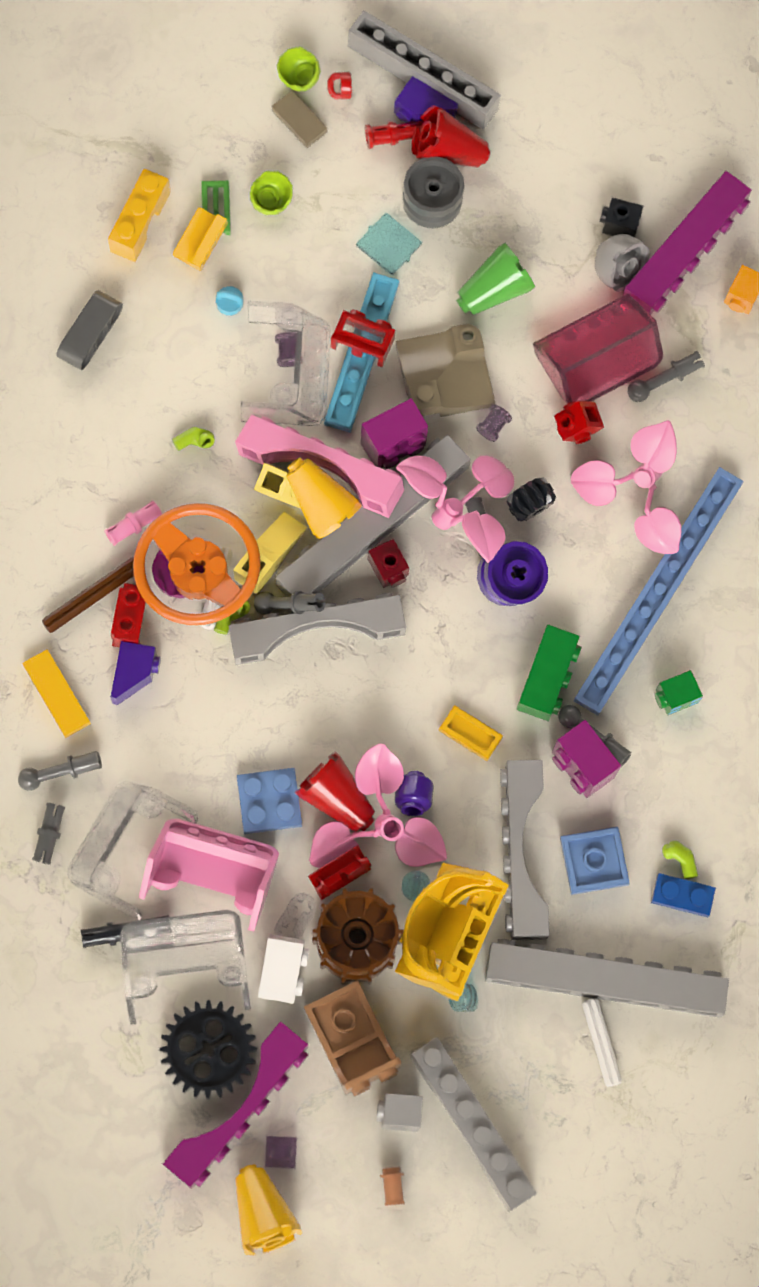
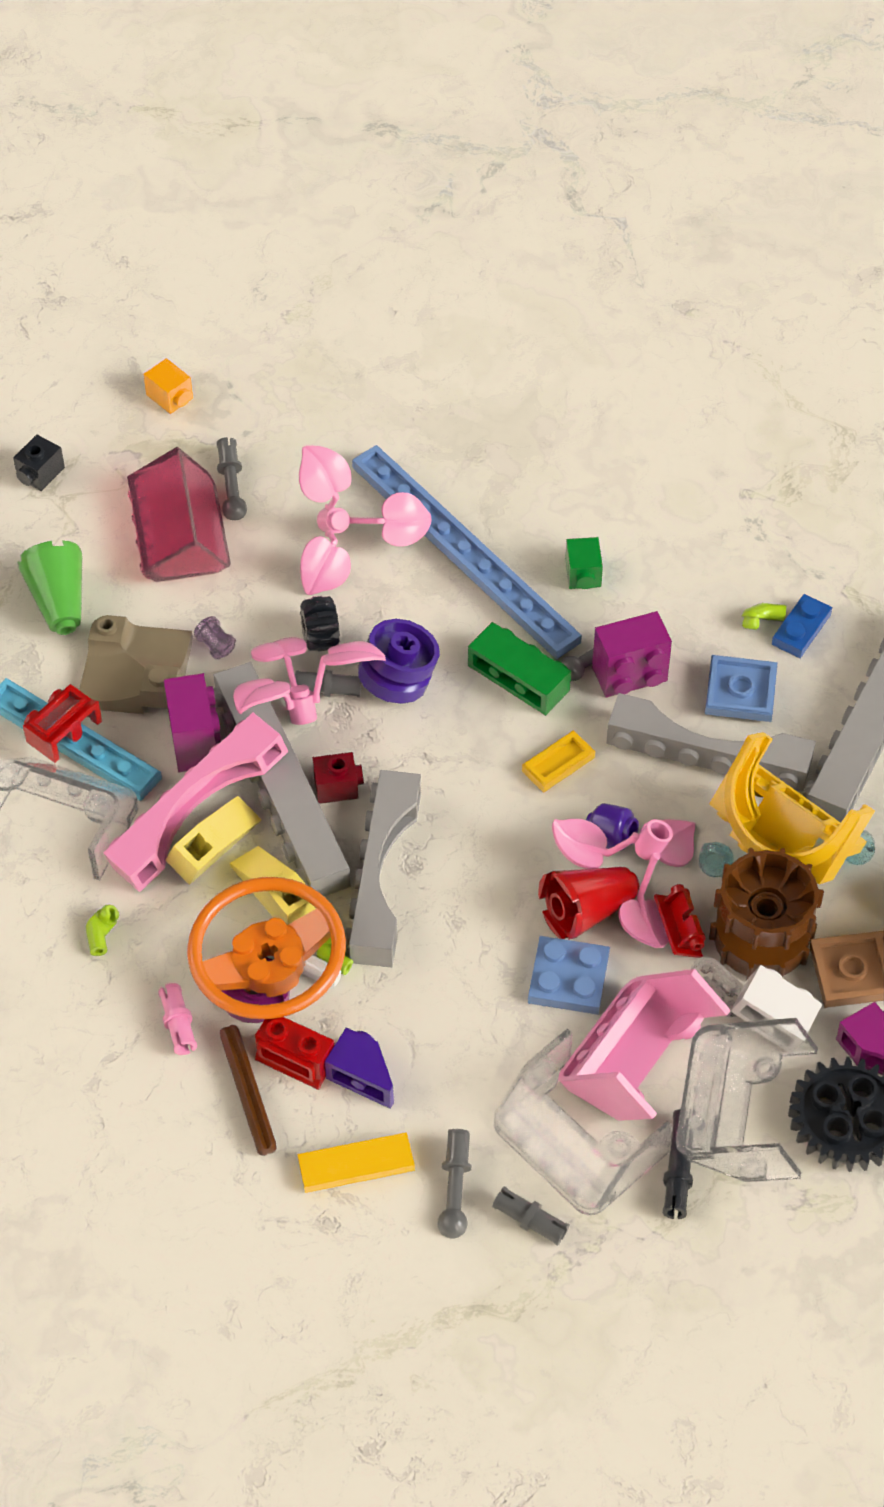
camera: 65 degrees left, 20 degrees down
(287, 349) = (37, 803): clear purple bush -> none
(299, 602) = (353, 861): dark grey pin -> none
(320, 497) = (242, 802): yellow cone -> none
(578, 421) = (250, 548): red brick -> none
(620, 260) = (84, 475): light grey cylinder -> none
(688, 242) = (92, 414): magenta brick -> none

